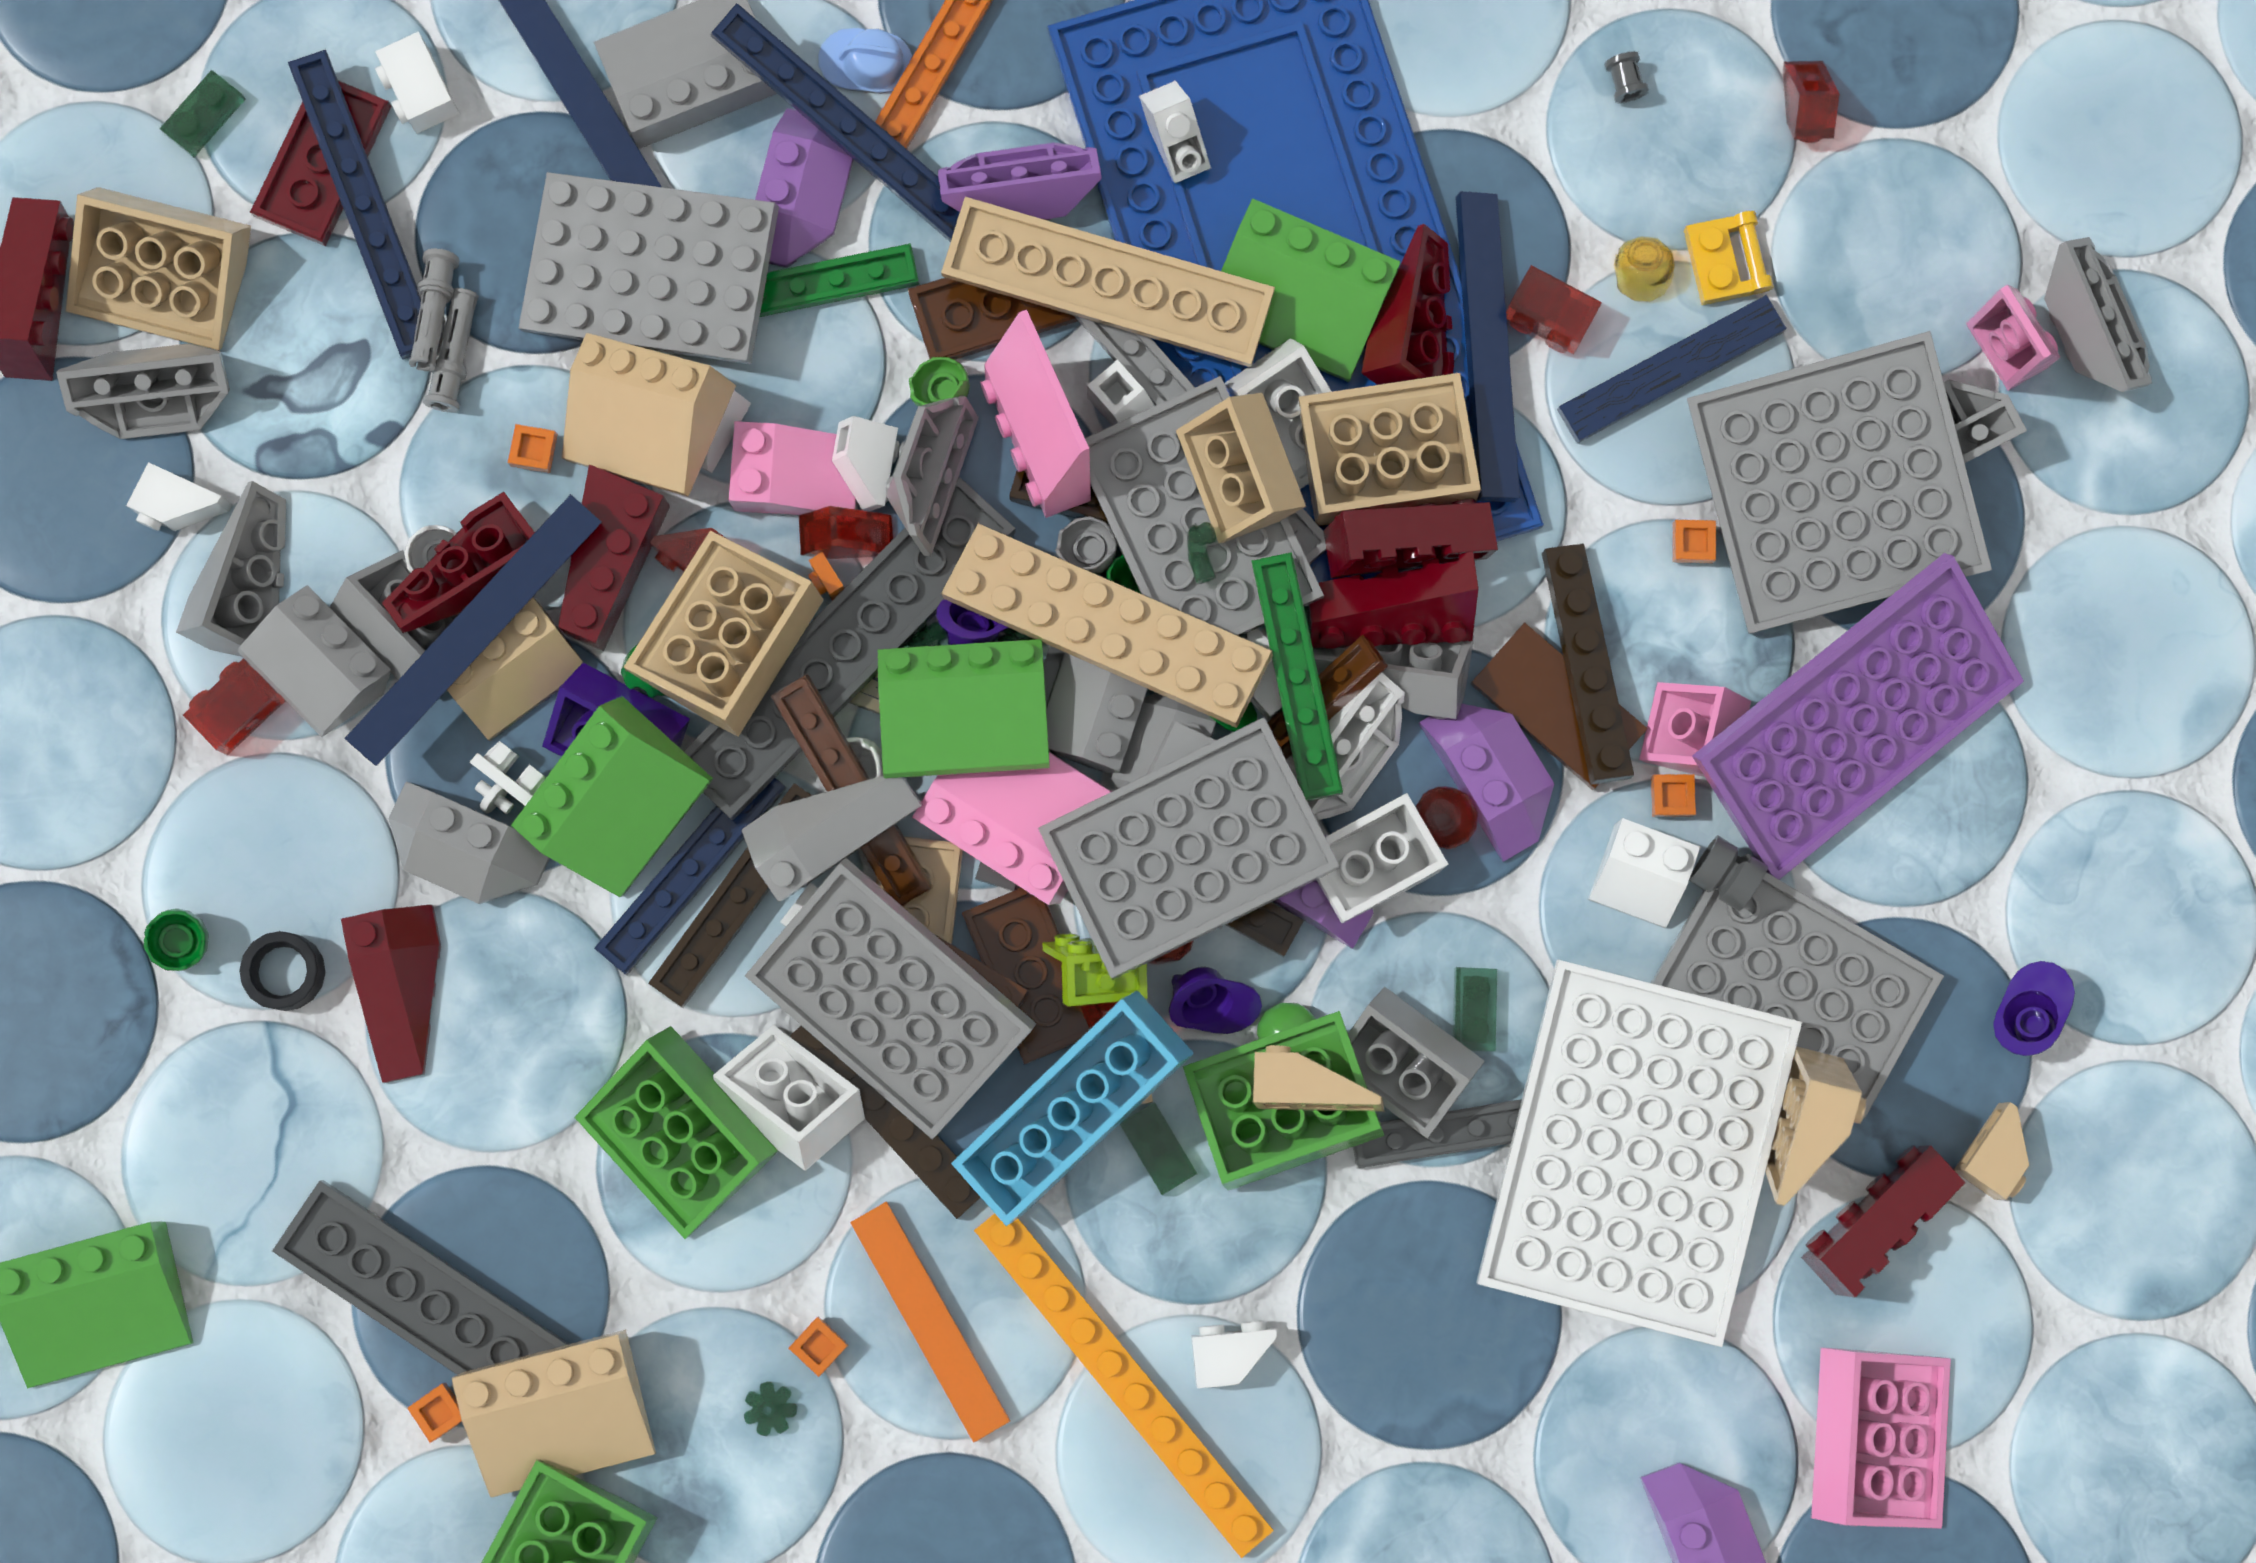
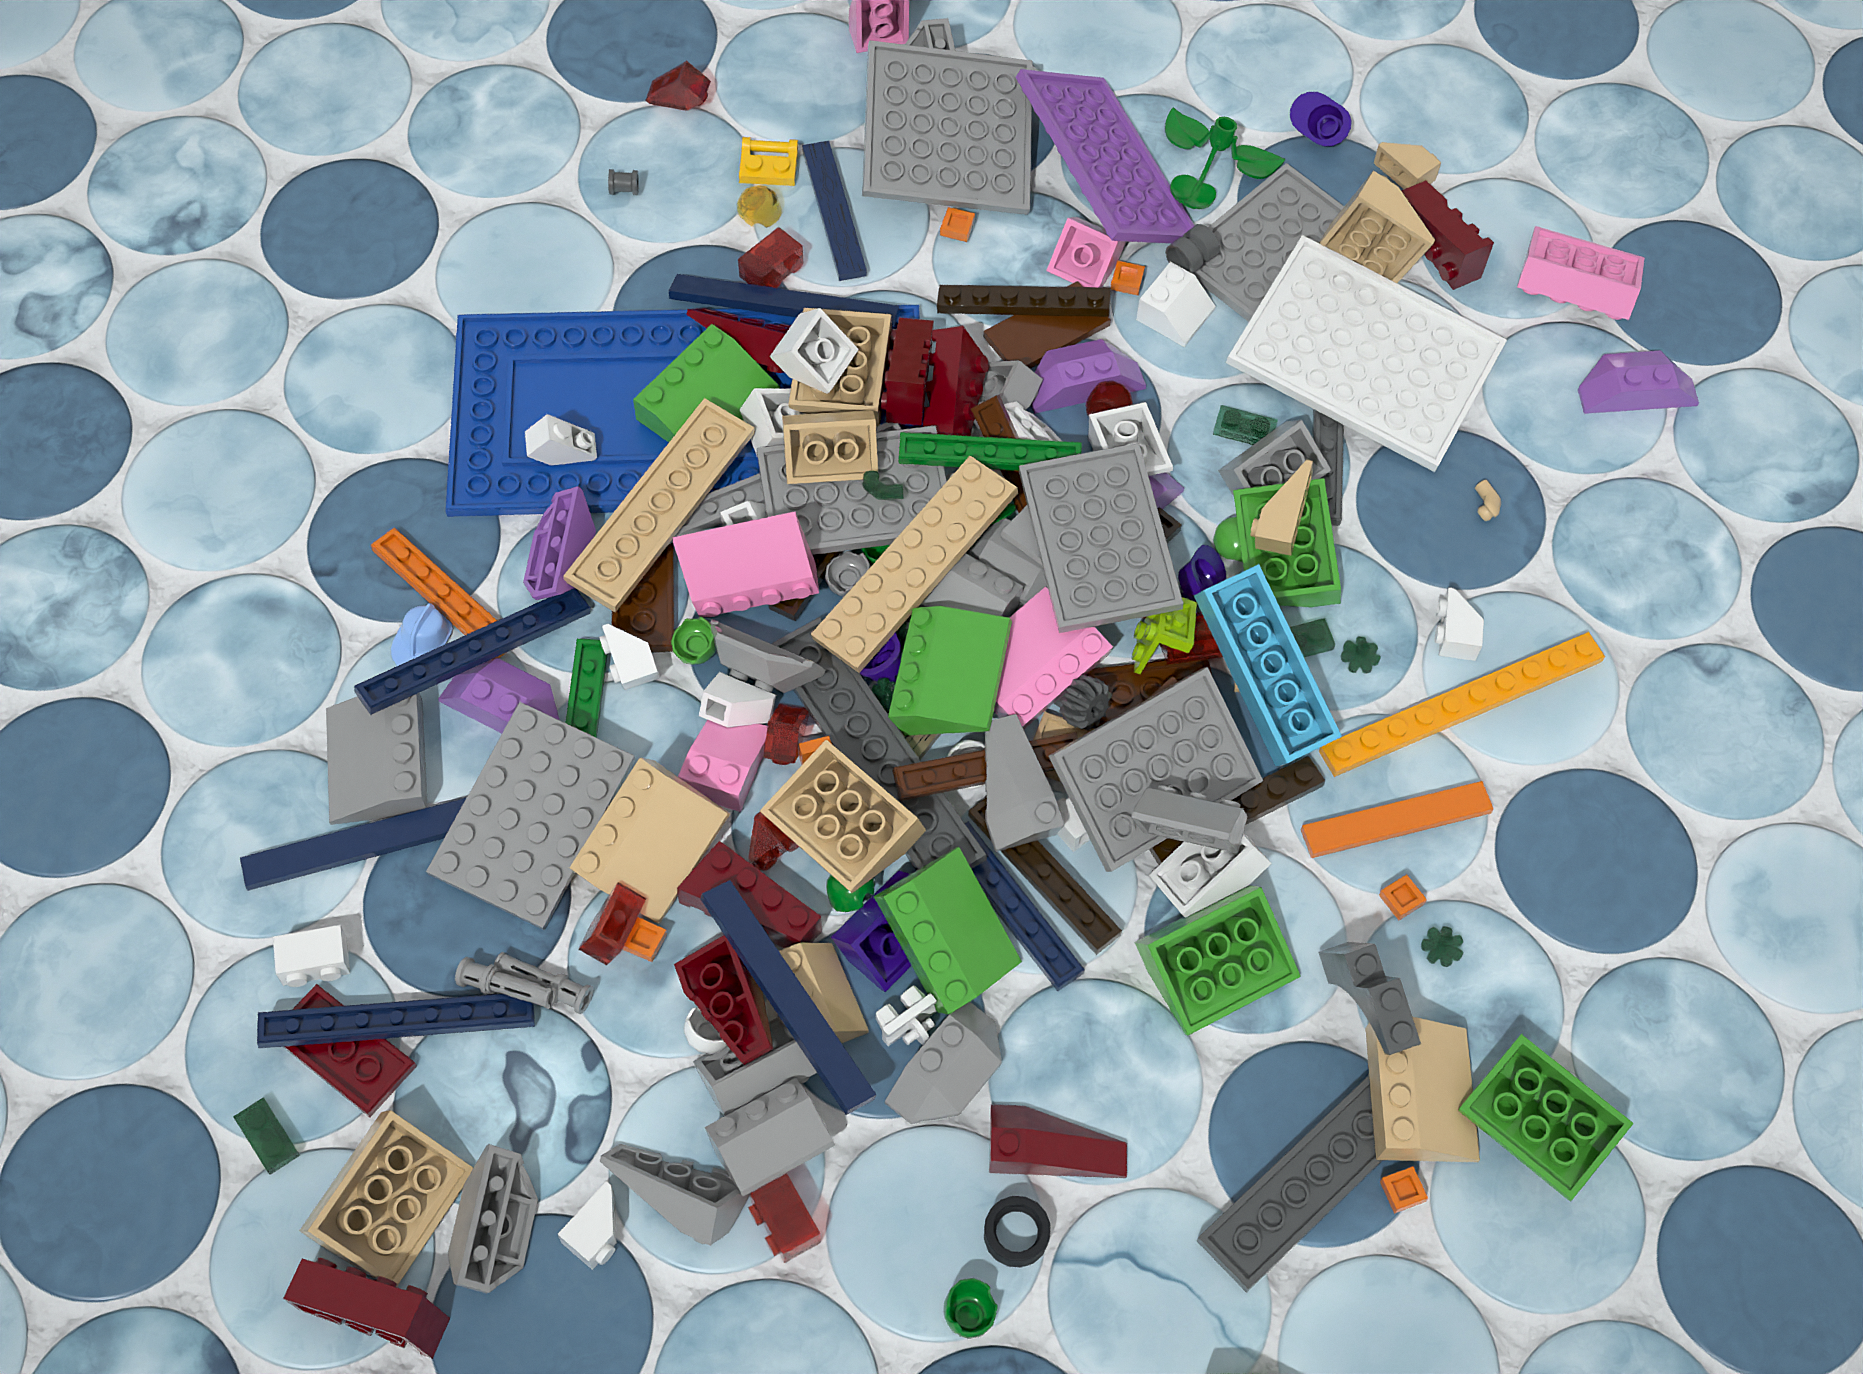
camera: 75 degrees left, 20 degrees down
(534, 406) = (612, 924): none -> clear red slope
(647, 1323) = (1381, 998): none -> dark grey arch
(807, 1053) = (1191, 818): none -> light grey slope
(893, 314) = (631, 656): none -> white slope
(970, 889) = (1085, 702): none -> dark grey gear
(1148, 1229) = (1360, 655): none -> clear green plant
(1379, 406) = (814, 351): none -> white slope
(1446, 1368) = (1491, 500): none -> tan arm
(1966, 824) = (1187, 132): none -> green plant

